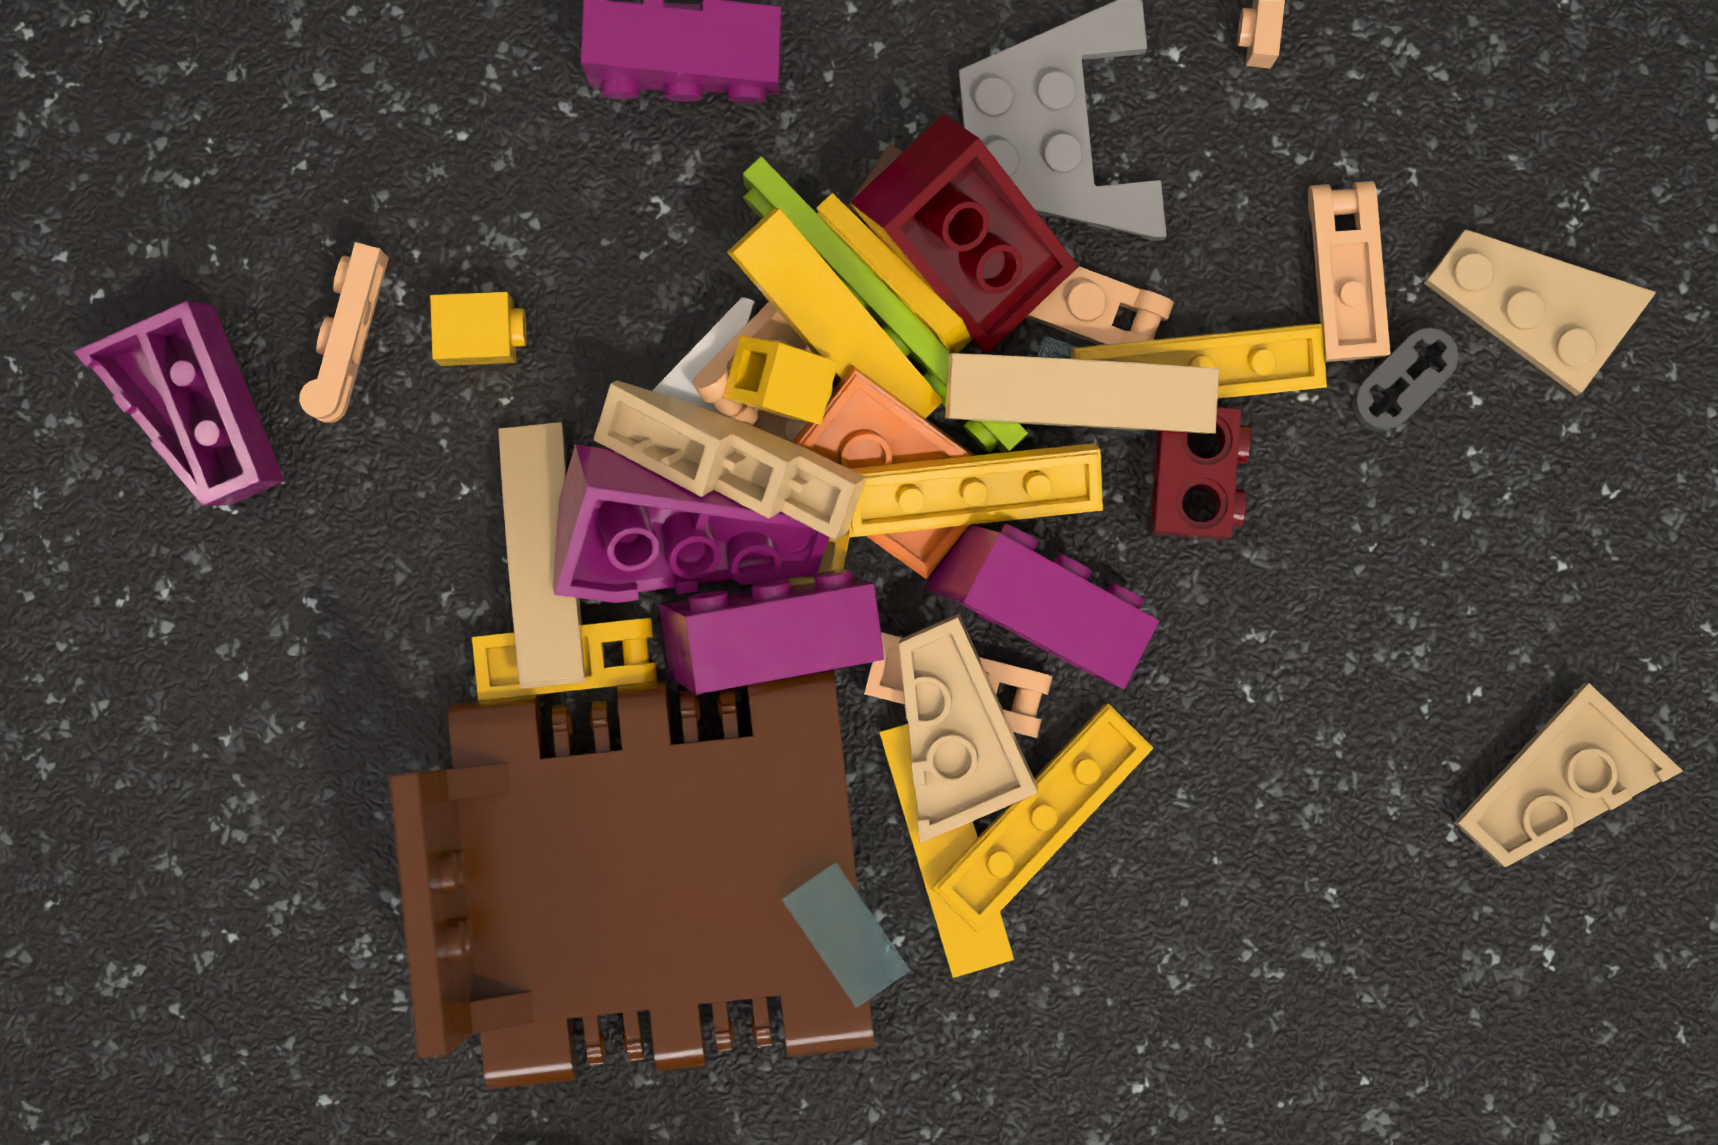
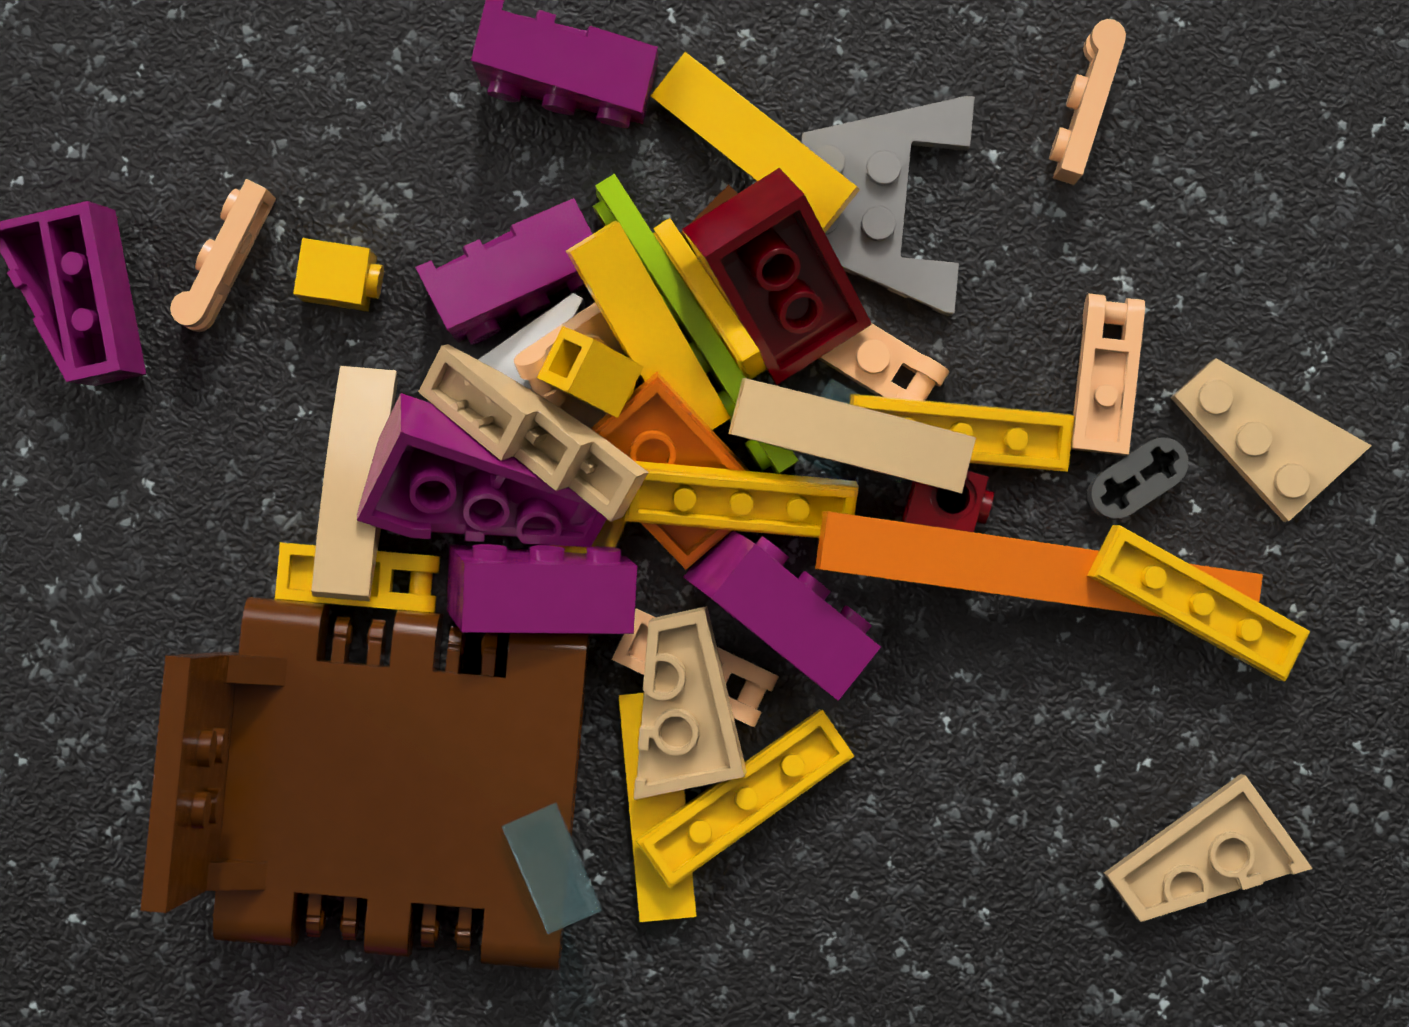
camera: 10 degrees right, 0 degrees up
(666, 289) = (507, 273): none -> magenta wedge
(902, 85) = (751, 137): none -> yellow tile
(1316, 502) = (981, 562): none -> orange tile
(1499, 503) = (1198, 603): none -> yellow tile

